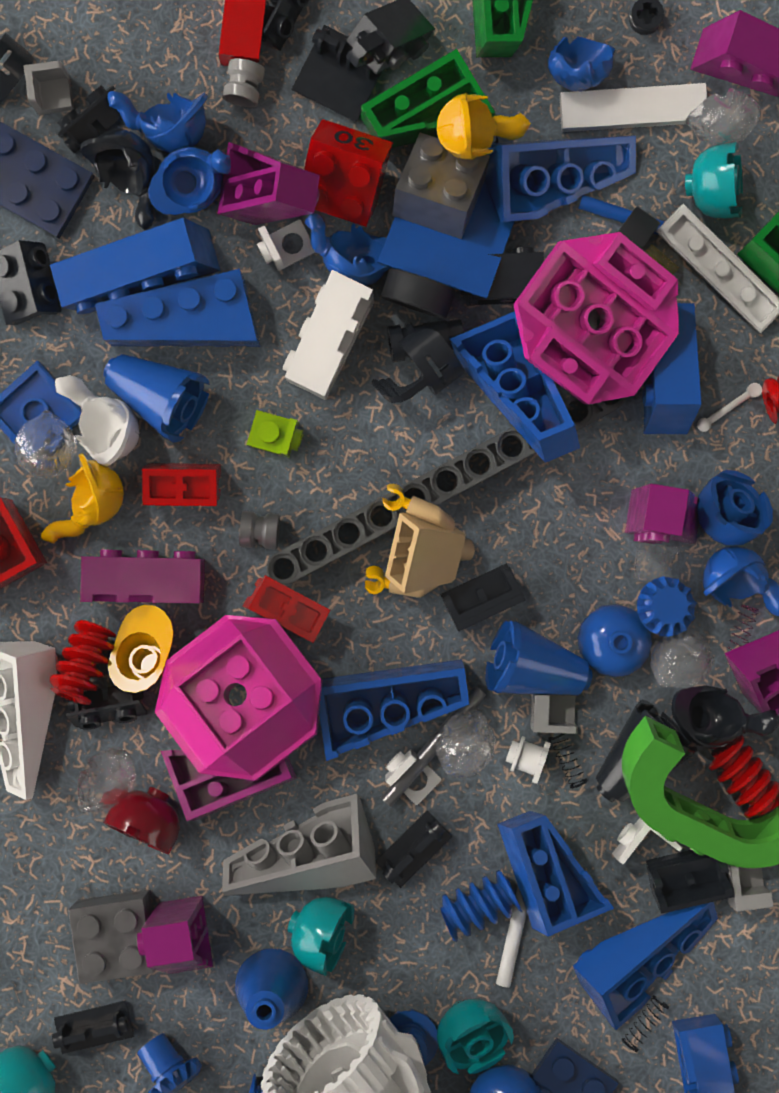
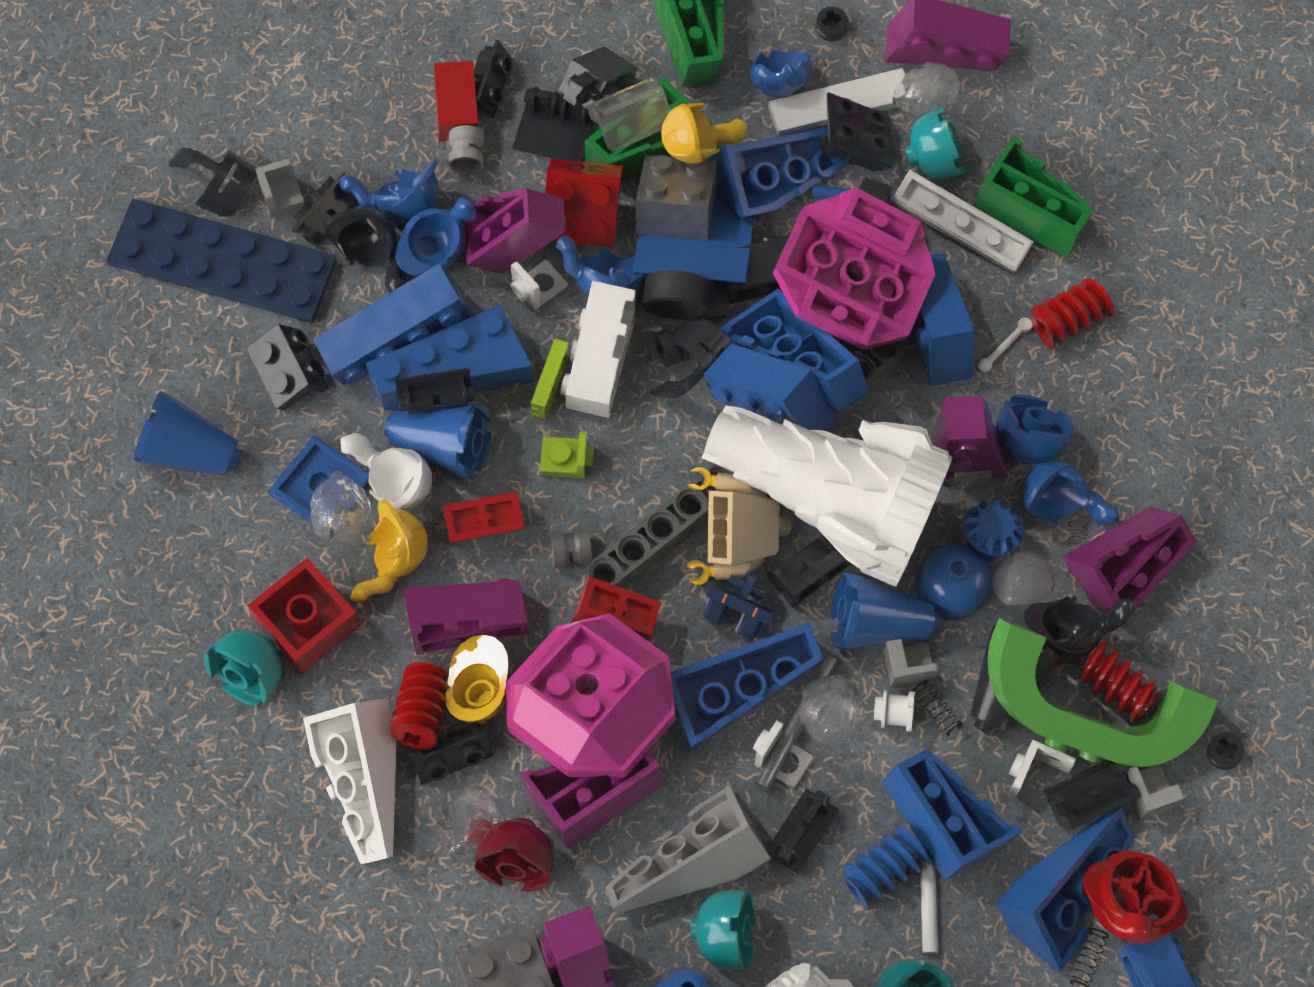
camera: 15 degrees left, 20 degrees down
(171, 351) = (432, 389): none -> black hinge
(275, 352) = (550, 379): none -> lime tile
(407, 620) = (752, 613): none -> dark blue hips
(412, 86) = (631, 113): none -> clear panel
(483, 425) = (769, 388): none -> blue wedge
(551, 560) = (858, 493): none -> white cone
(641, 149) = (857, 134): none -> black hinge
(714, 968) = (1142, 890): none -> red piece

